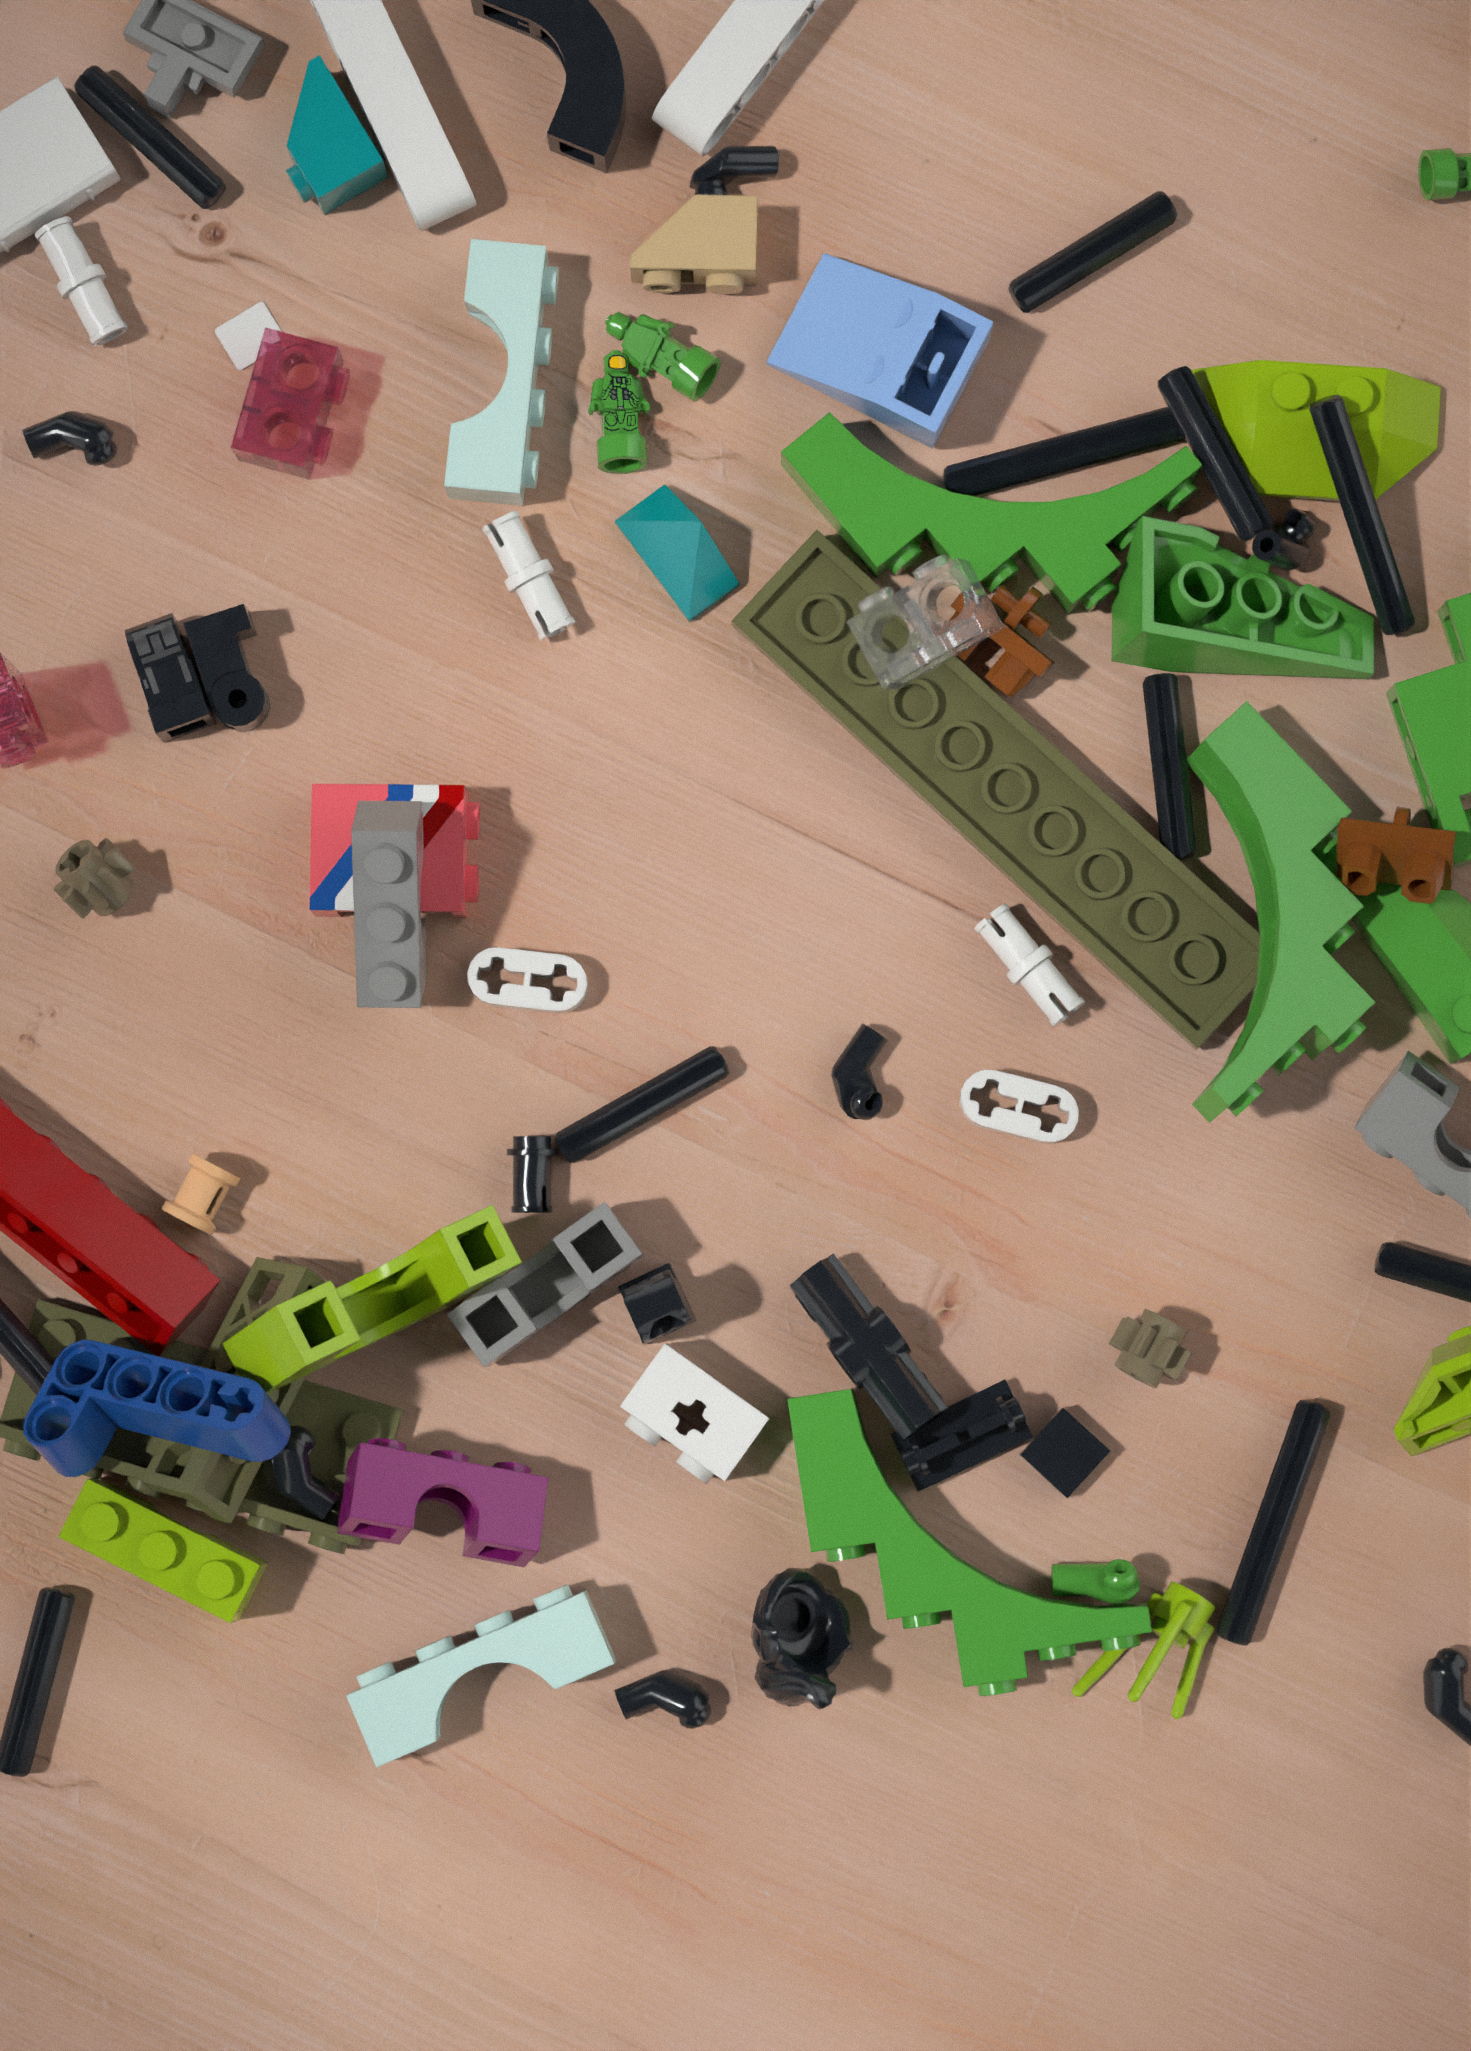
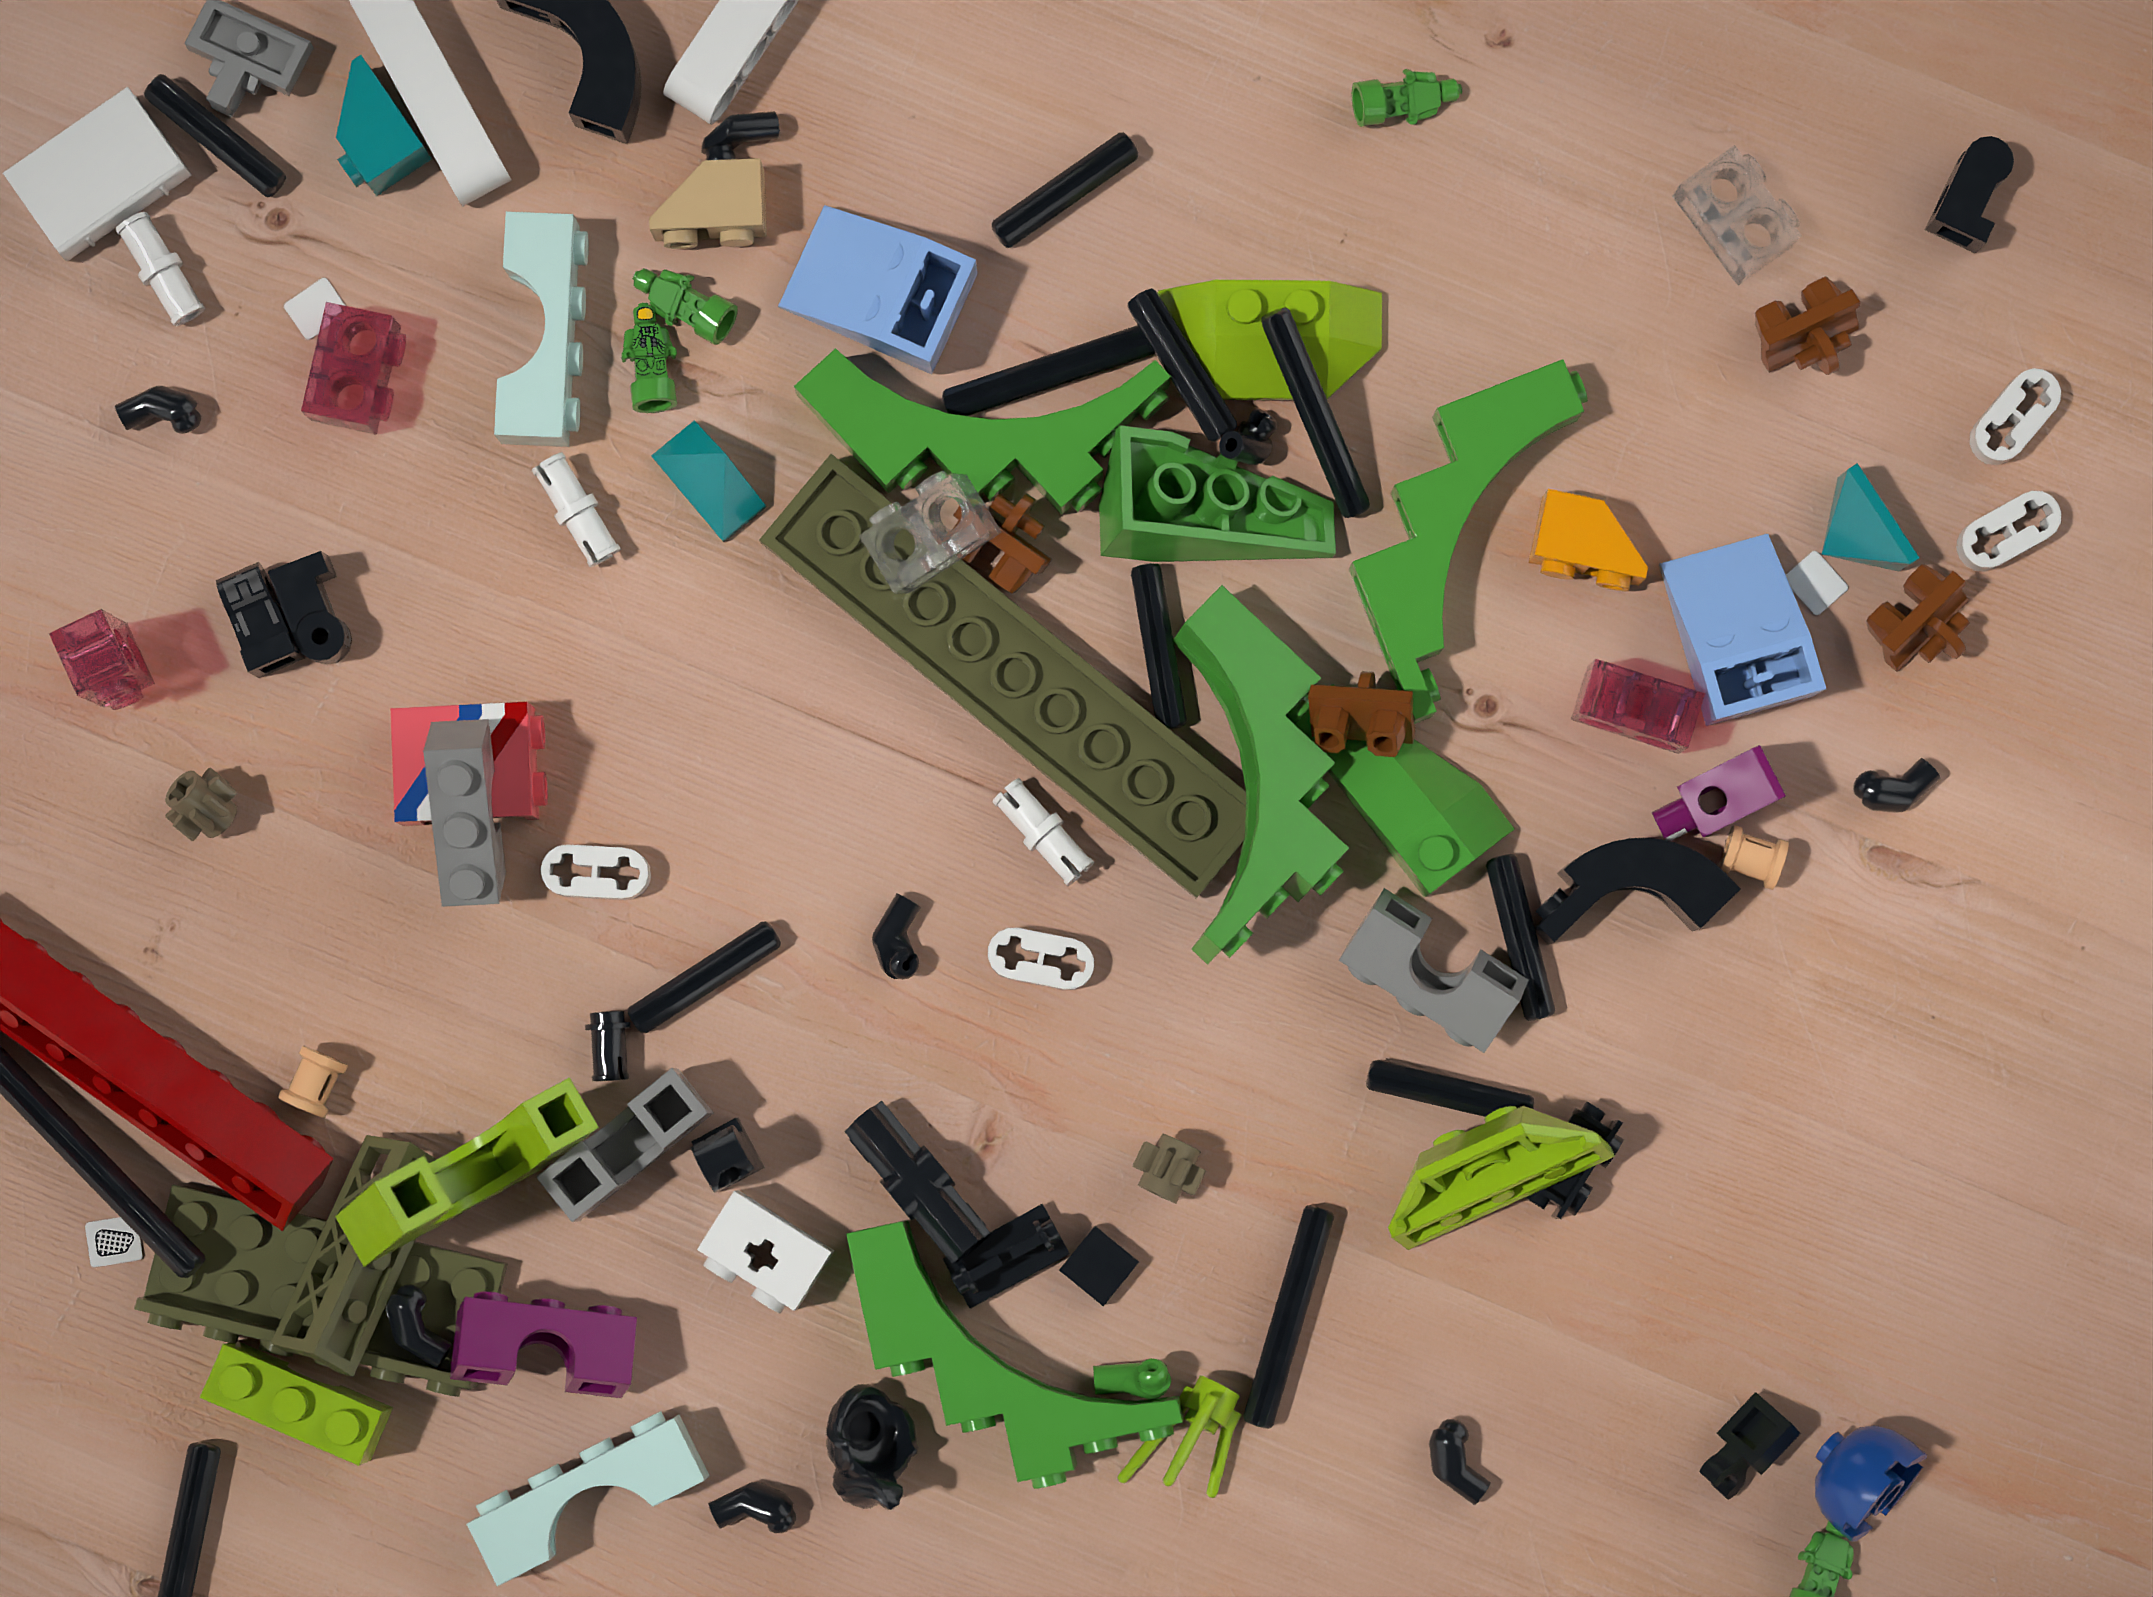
camera: 10 degrees left, 0 degrees up
(110, 1387) = (234, 1261): blue beam -> none

